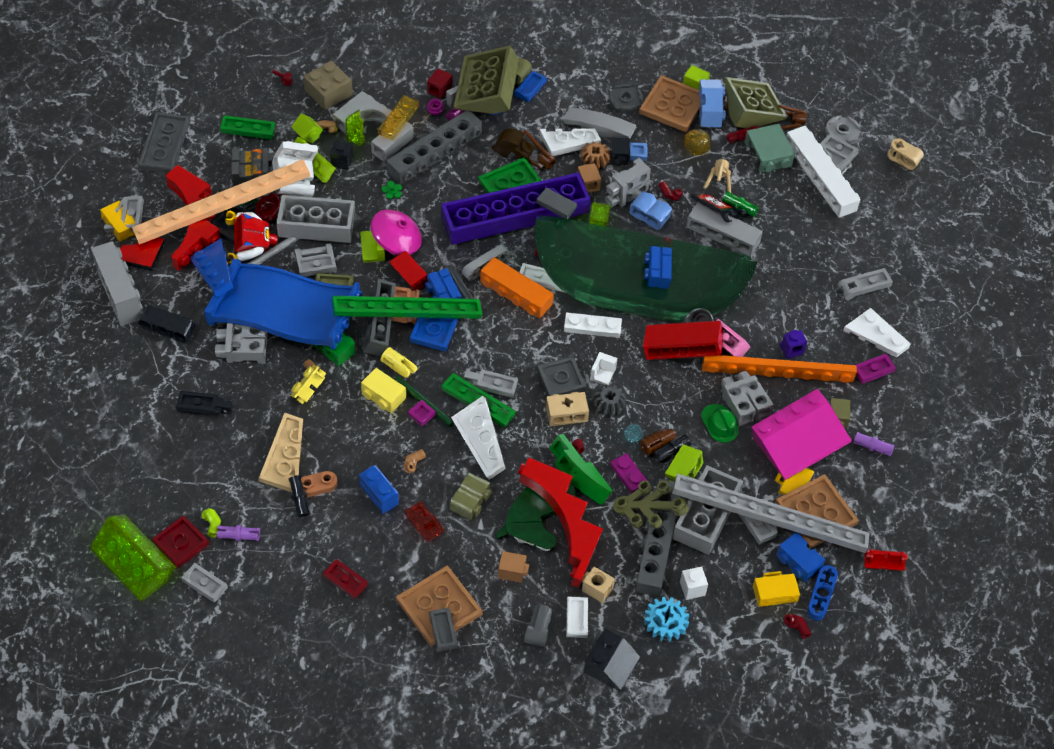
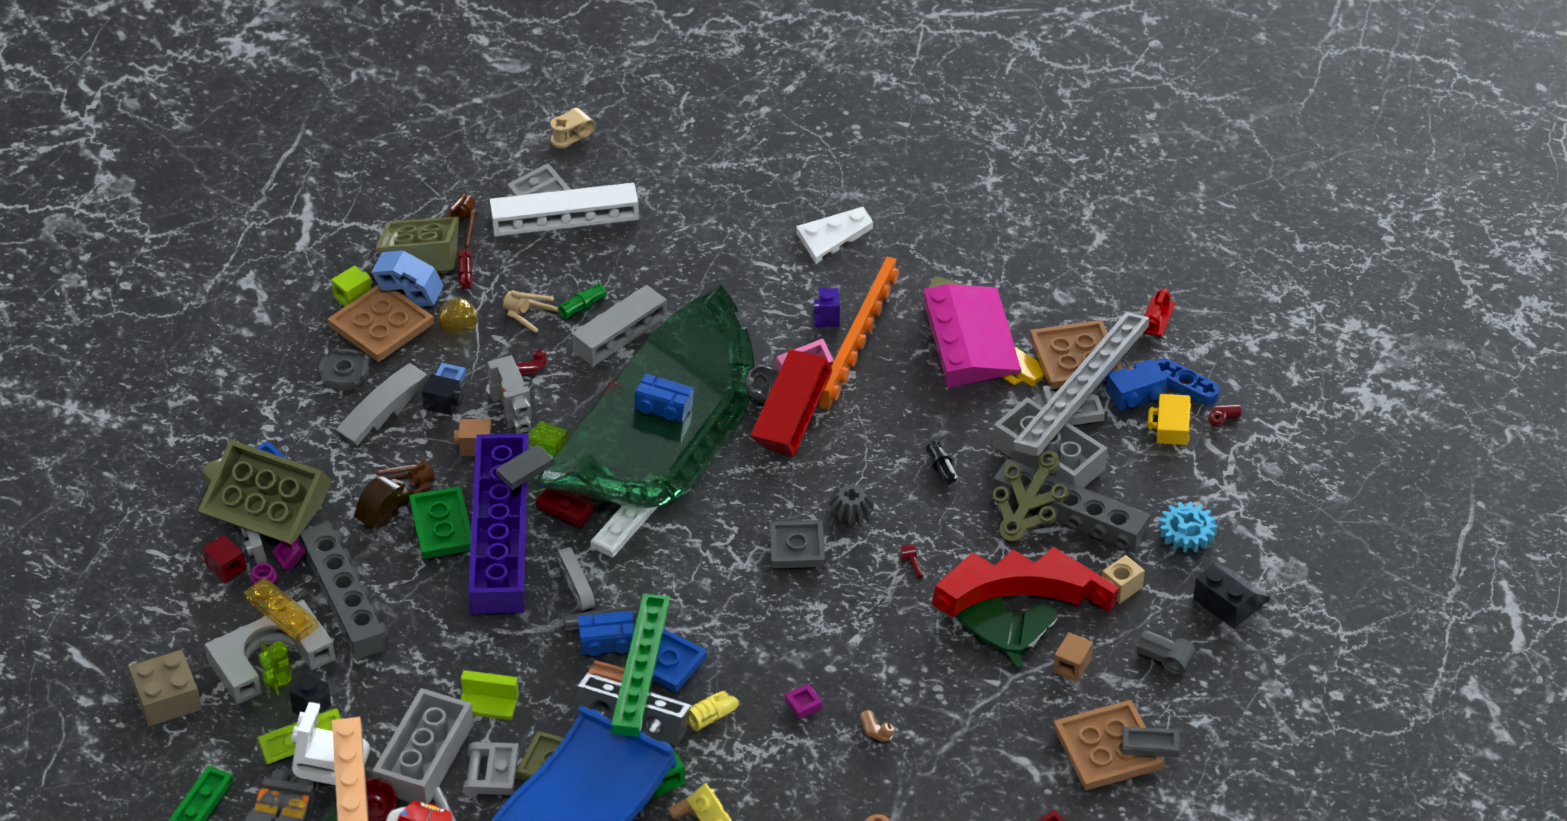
camera: 70 degrees left, 10 degrees down
(286, 78) = (117, 738): dark red hand -> none
(307, 128) = (242, 727): lime brick -> none
(331, 125) = (234, 711): medium nougat arm -> none
(379, 489) = (914, 769): blue brick -> none
(383, 390) = (753, 733): light yellow brick -> none
(391, 190) = (395, 658): green plant -> none
(396, 232) = (487, 659): dark pink dish -> none
(409, 270) = (557, 661): red hinge -> none
(418, 396) = (776, 699): dark green bar -> none
(423, 521) = (980, 735): clear red slope -> none
(468, 393) = (802, 637): green plate -> none
(470, 496) = (953, 676): olive brick -> none
(479, 434) = (855, 646): white wing -> none
(492, 382) = (779, 616): light grey hinge -> none
(516, 287) = (633, 555): orange brick -> none
(563, 142) = (397, 442): white wing -> none
(567, 408) = (849, 548): tan brick -> none
(577, 617) = (1158, 614): white tile -> none
(584, 474) = (942, 558): green slope -> none
(592, 325) = (720, 495): white plate -> none
(595, 154) = (438, 421): medium nougat gear -> none
(603, 368) = (795, 500): white panel -> none
(627, 472) = (964, 515): magenta plate -> none
(633, 433) = (907, 494): clear light blue plate -> none
(650, 210) = (558, 388): medium blue brick -> none
(656, 440) = (927, 474): reddish brown hinge -> none
(686, 462) = (976, 454): lime hinge -> none
(693, 583) = (1146, 488): white brick -> none
(718, 206) = (585, 317): black flag -> none
(720, 423) = (916, 409): green piece -> none
(746, 398) = (892, 373): light grey hips -> none
(770, 147) = (505, 241): sand green panel -> none
(849, 124) = (498, 164): light grey tile -> none
(865, 283) = (757, 220): light grey plate -> none
(873, 444) = (998, 277): medium lavender pin -> none
(874, 368) = (888, 244): magenta plate -> none

